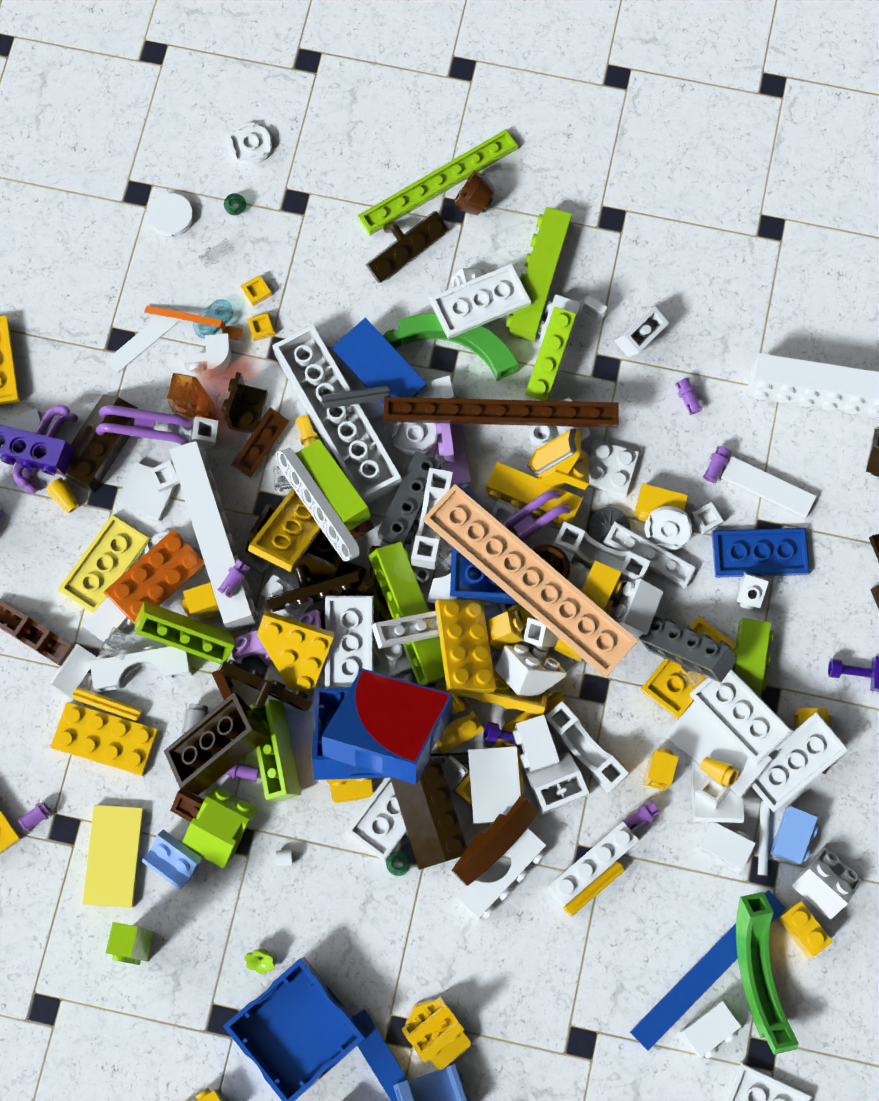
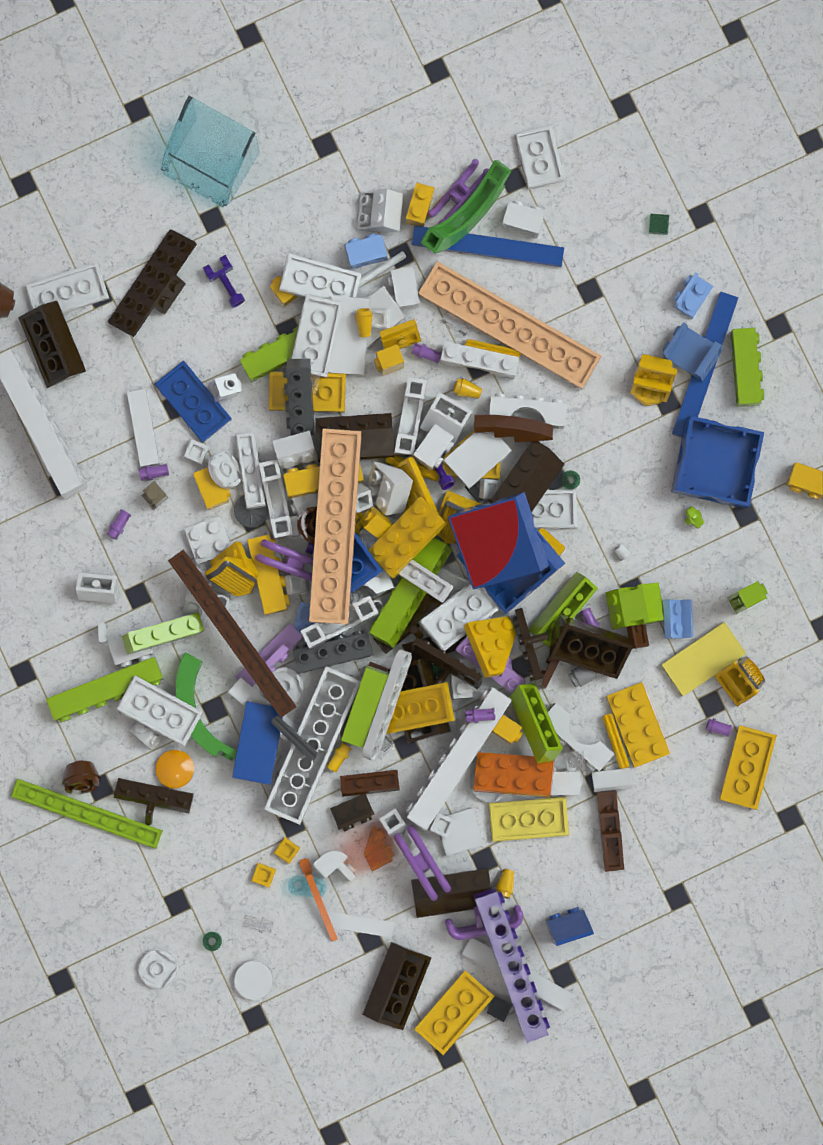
camera: 135 degrees left, 10 degrees up
(57, 329) = (396, 986): none -> dark brown slope
(58, 877) = (741, 680): none -> yellow piece
(416, 283) = (174, 769): none -> light orange dish
(572, 829) = (466, 389): none -> yellow cone
(598, 698) = (375, 428): none -> dark brown slope
(605, 926) = (509, 325): none -> light nougat plate
(648, 870) = (455, 324): none -> clear pin
(678, 801) = (402, 334): none -> yellow plate
(693, 448) = (154, 495): none -> dark tan brick
(790, 981) = (458, 192): none -> medium lavender piece

